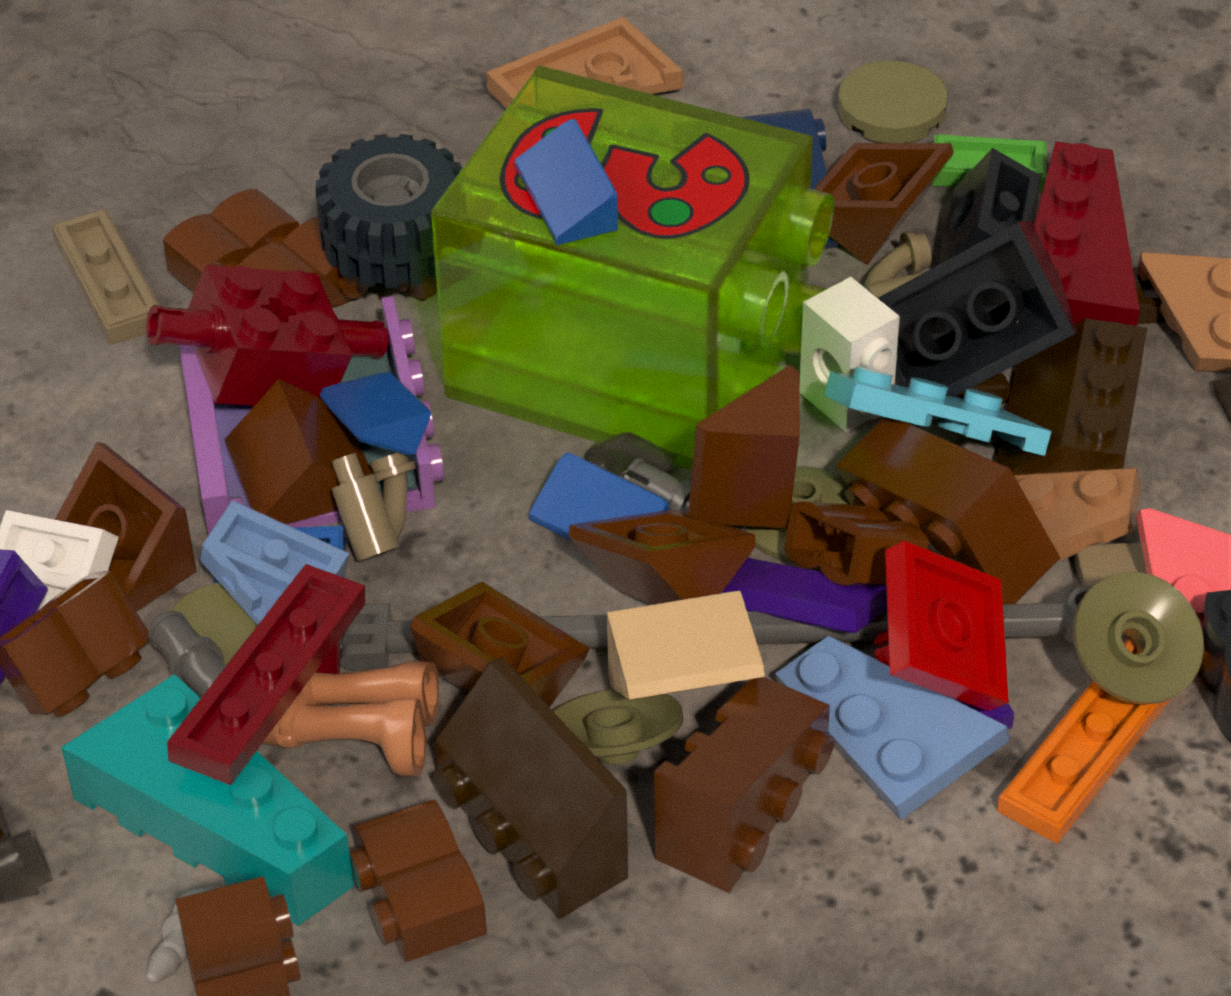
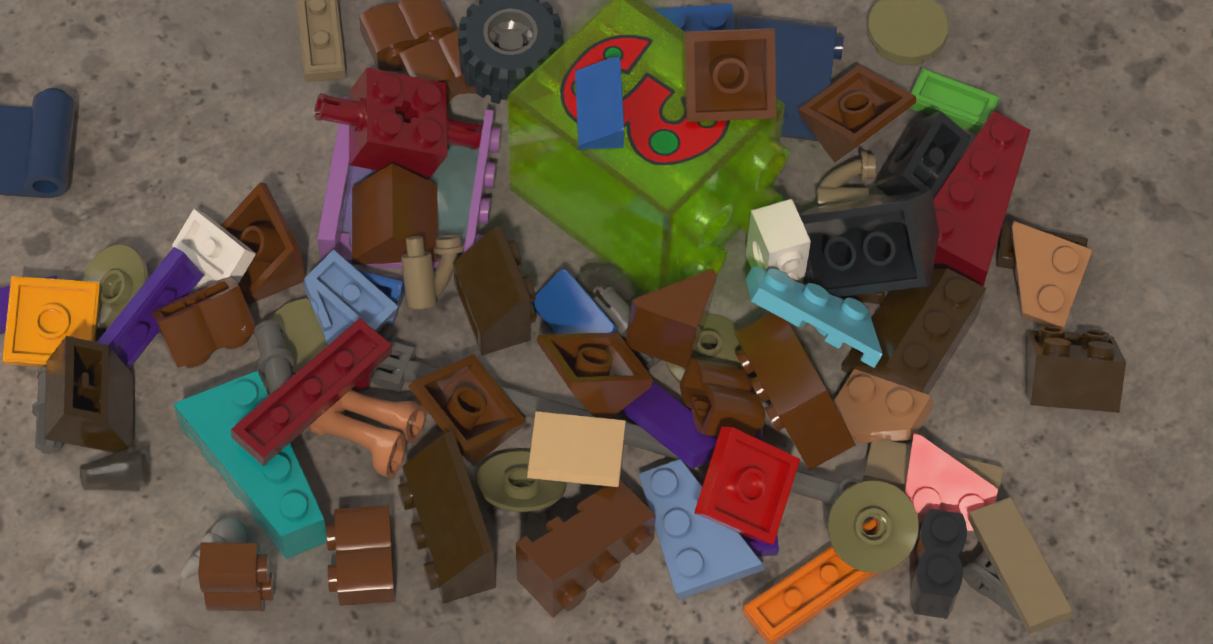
camera: 15 degrees right, 15 degrees up
(379, 411) = (450, 203): blue slope -> none
(481, 500) = (495, 292): none -> dark brown slope
(728, 105) = (729, 74): none -> reddish brown slope

